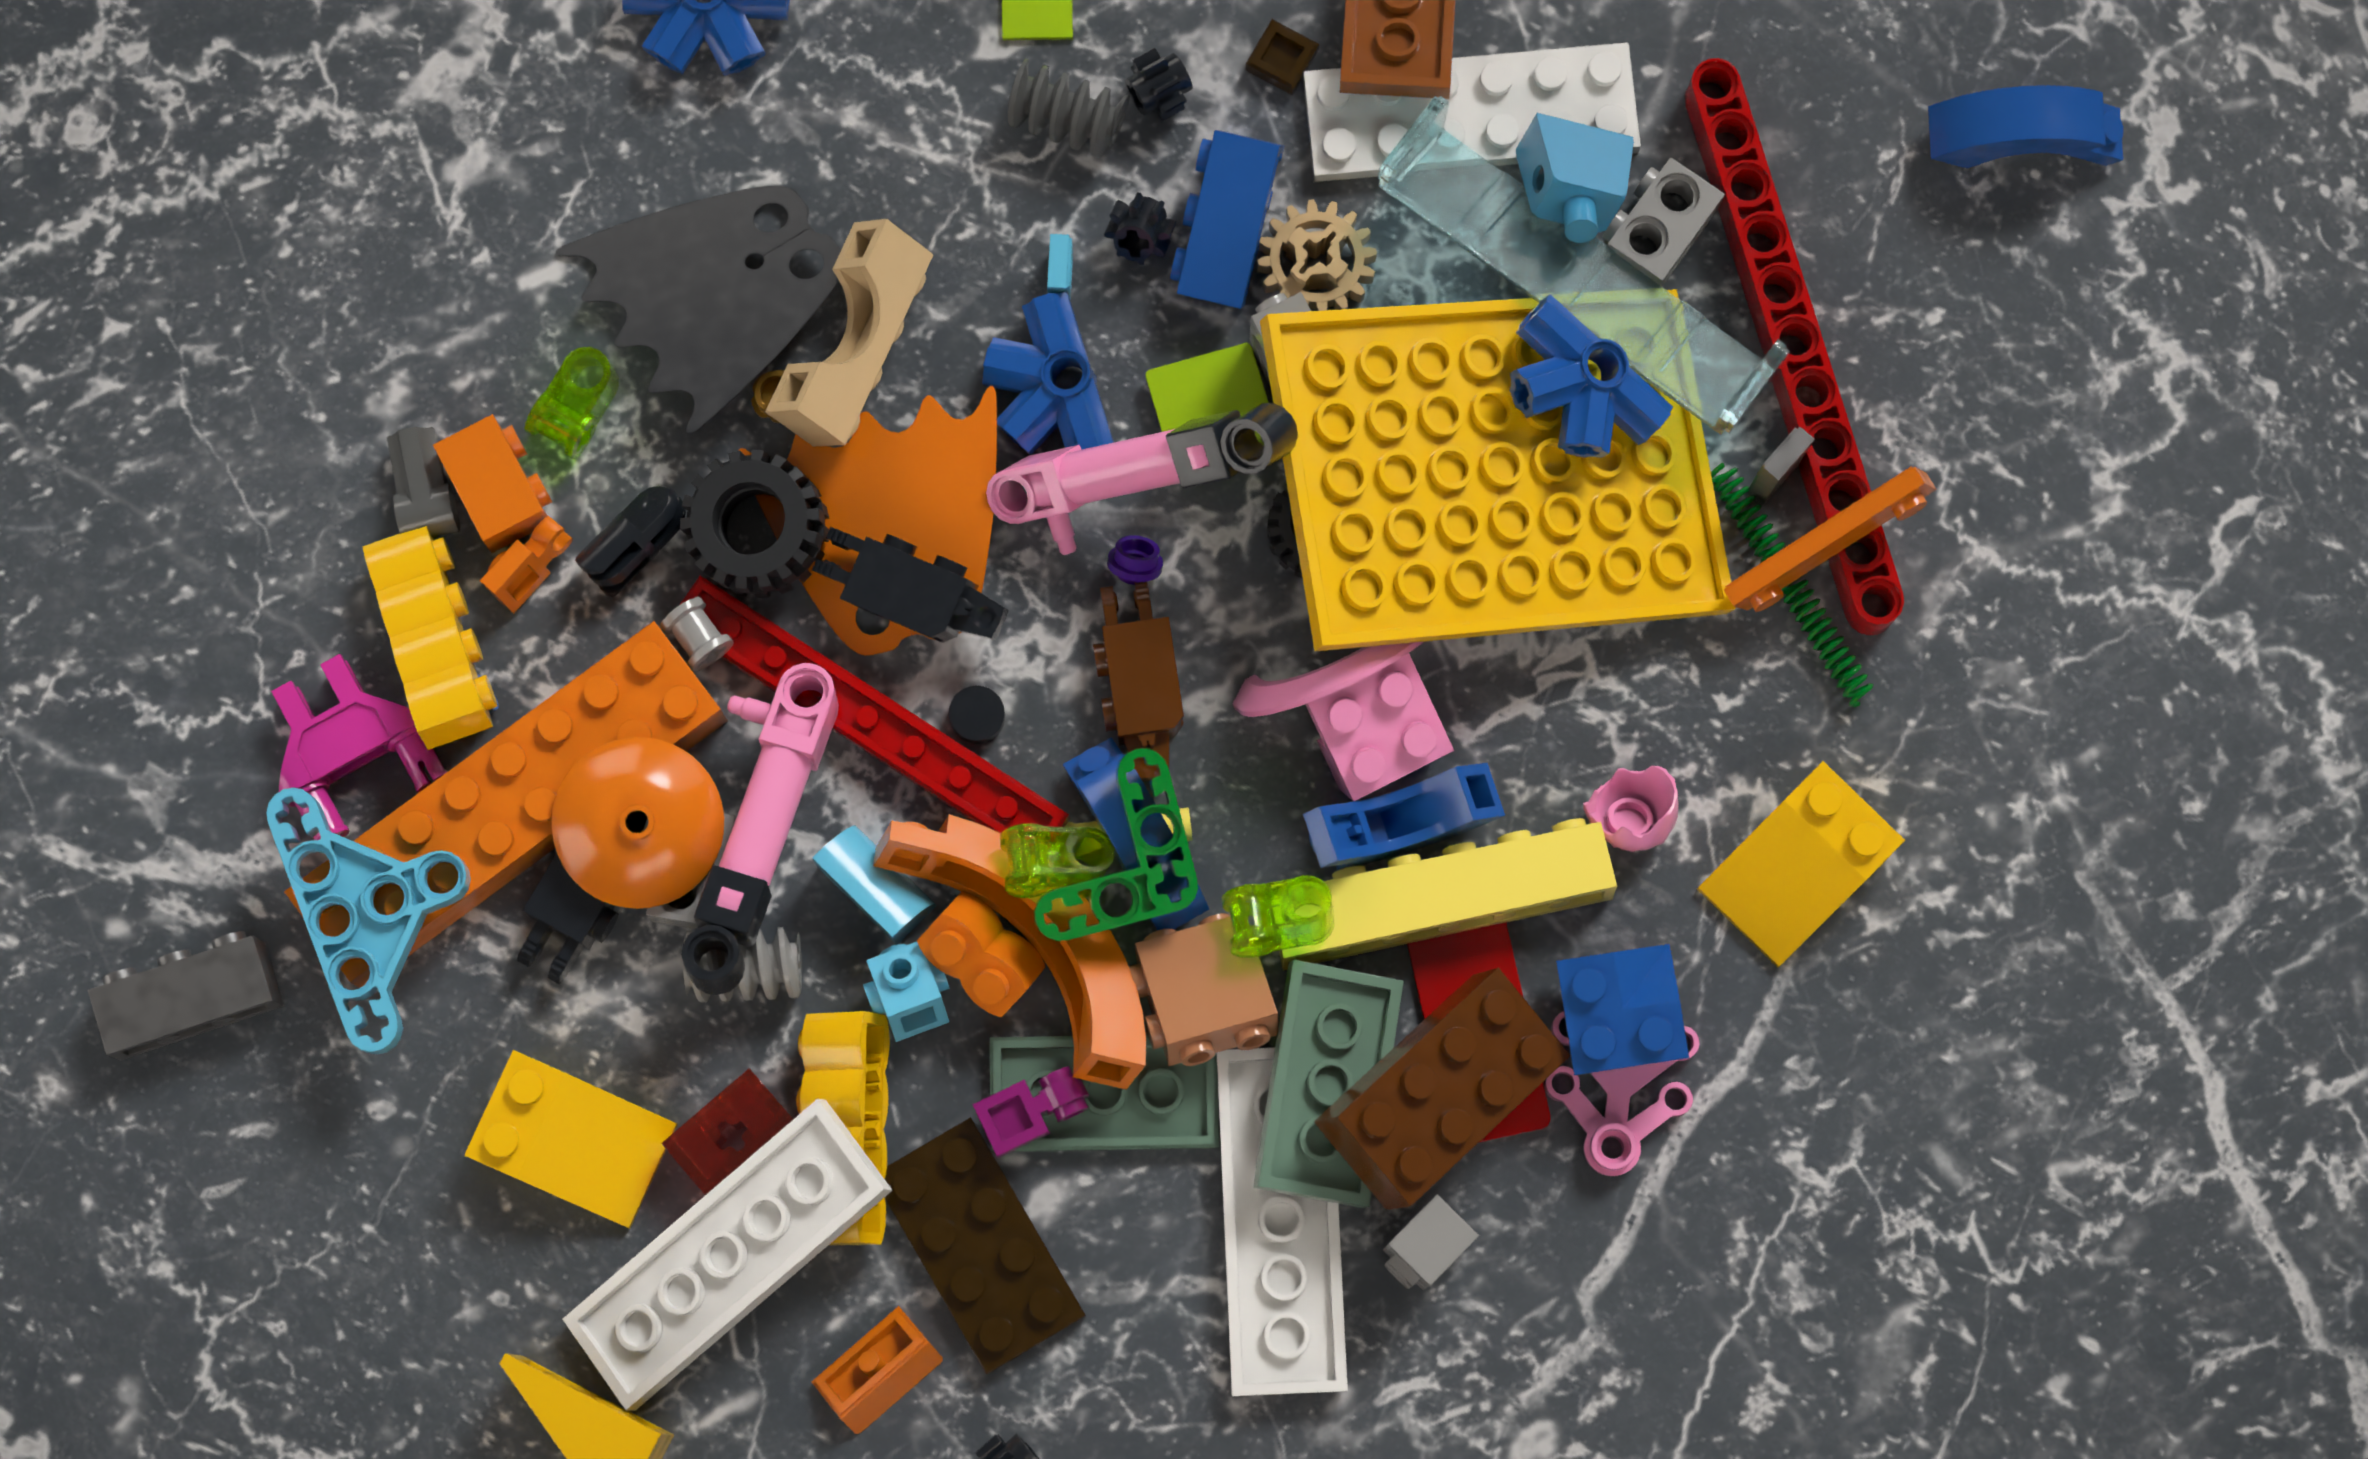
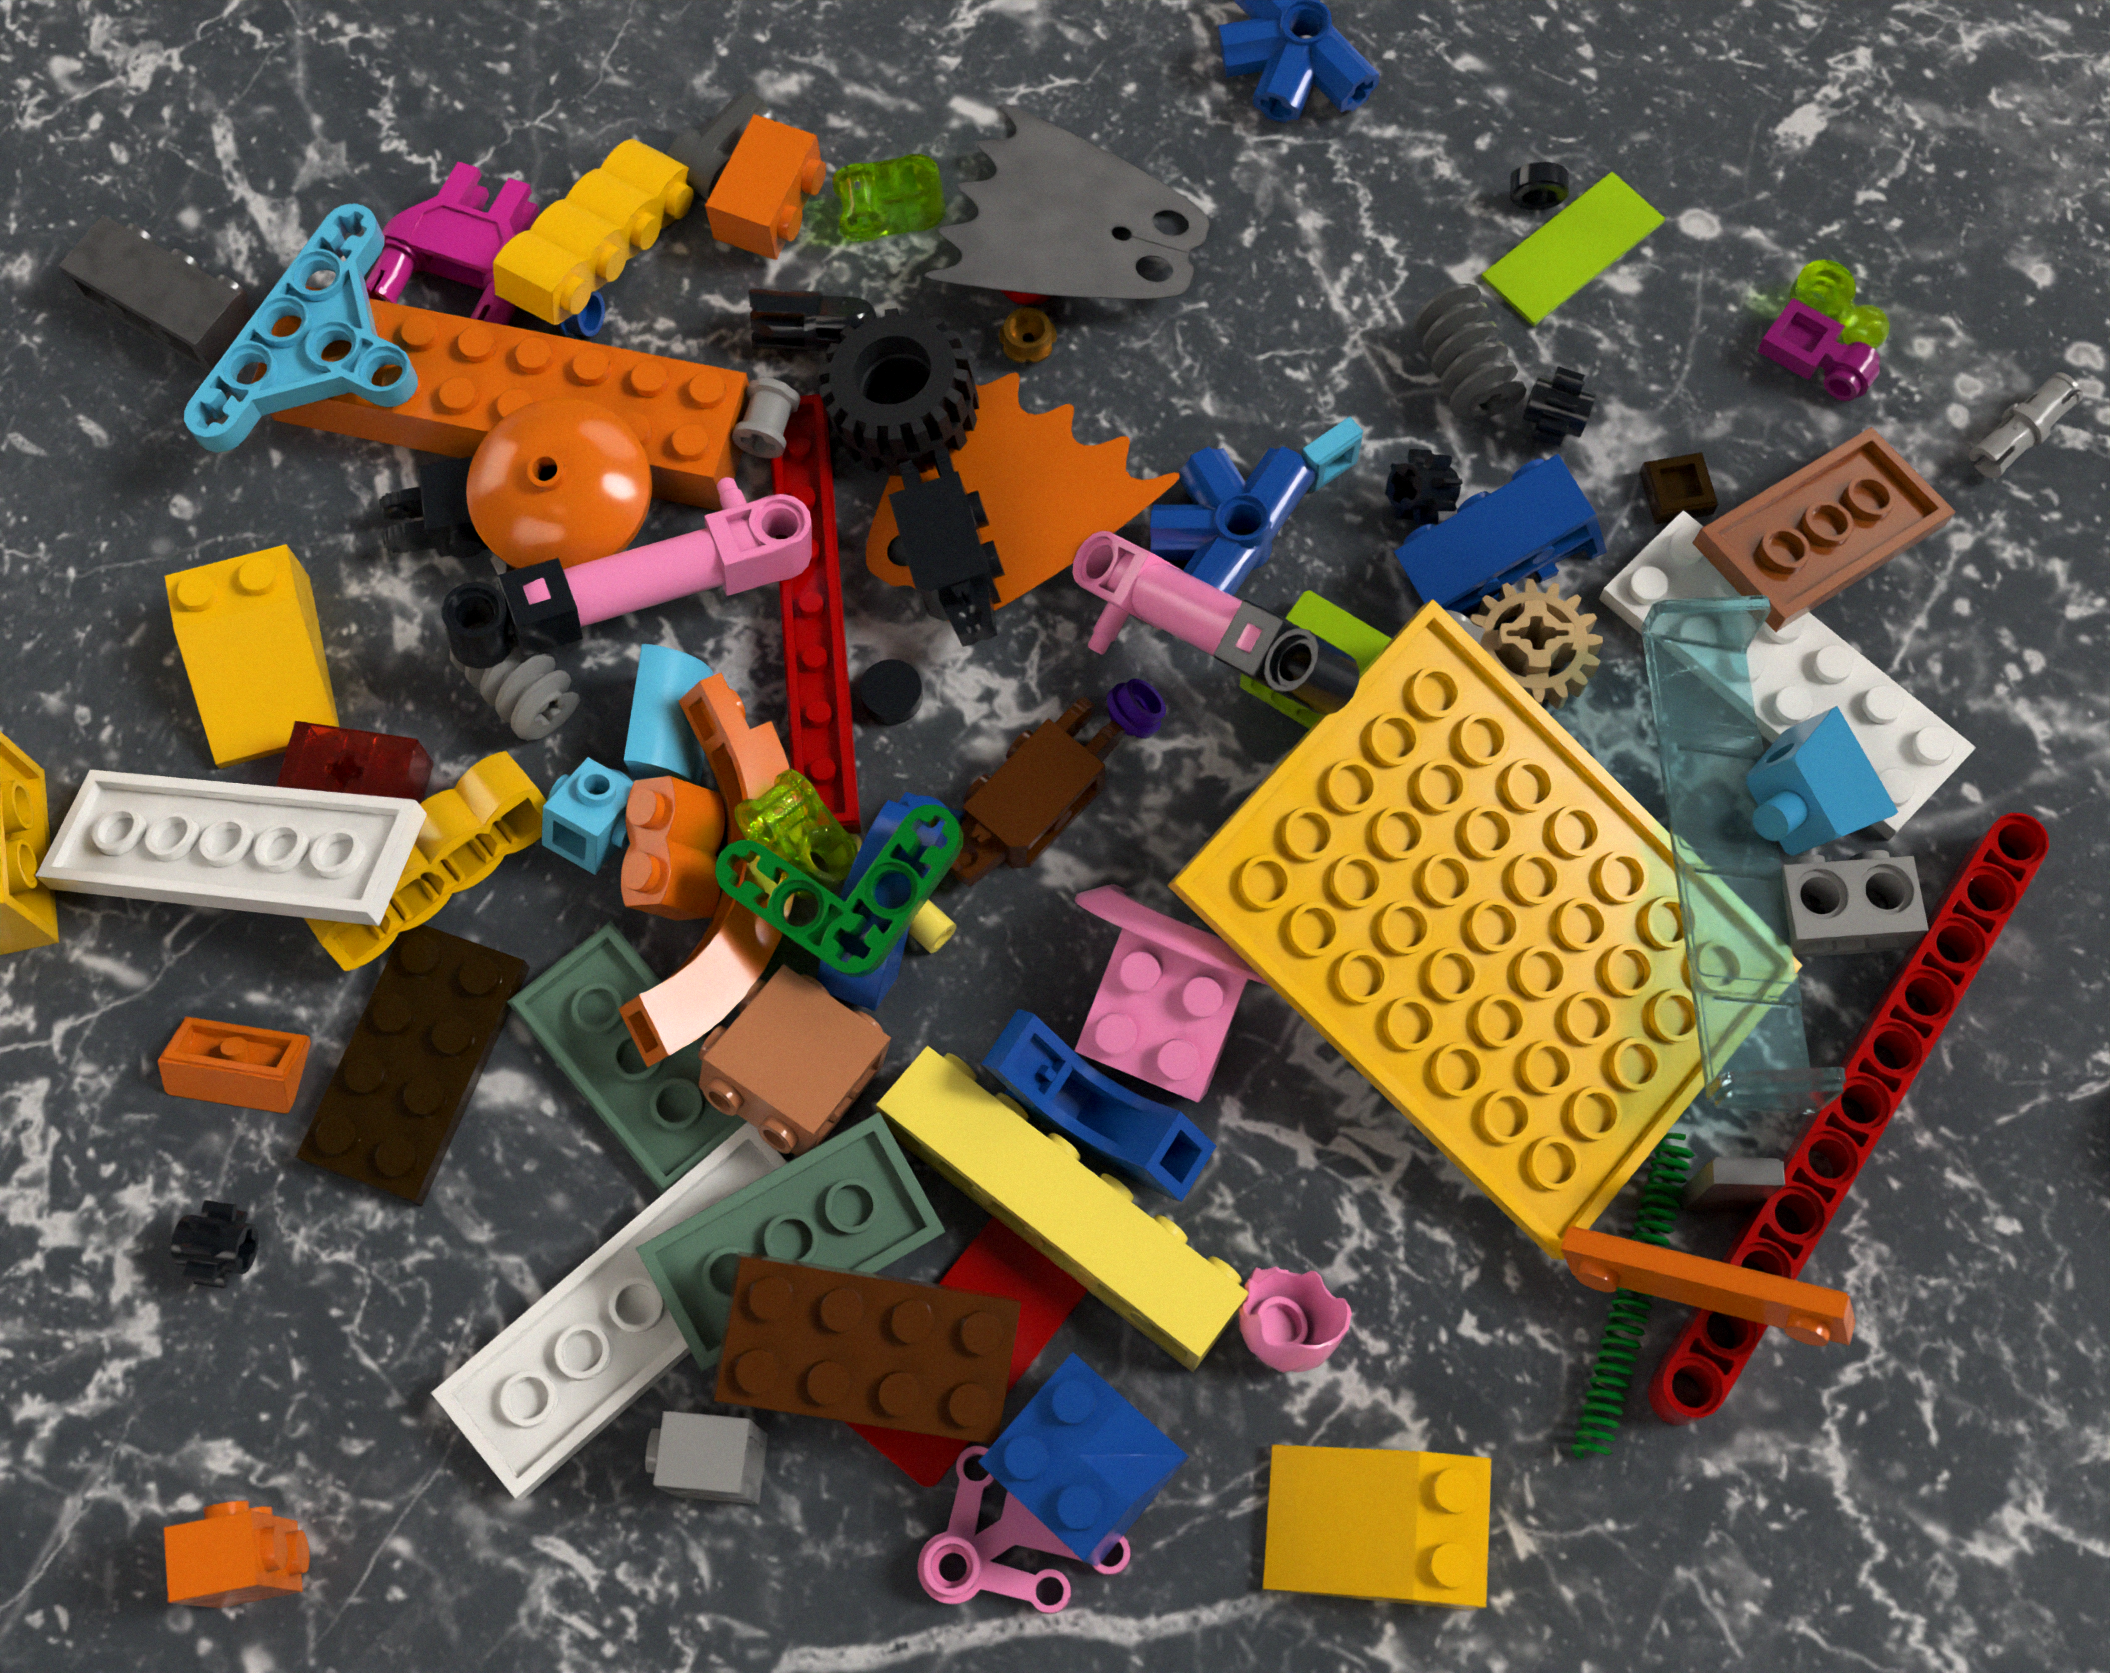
camera: 55 degrees right, 10 degrees down
(523, 567) = (713, 265): orange plate -> none
(880, 277) = (1194, 322): tan arch -> none
(1015, 1116) = (550, 990): magenta plate -> none
(1273, 911) = (899, 1052): clear neon green piece -> none
(1566, 382) = (1622, 952): blue piece -> none

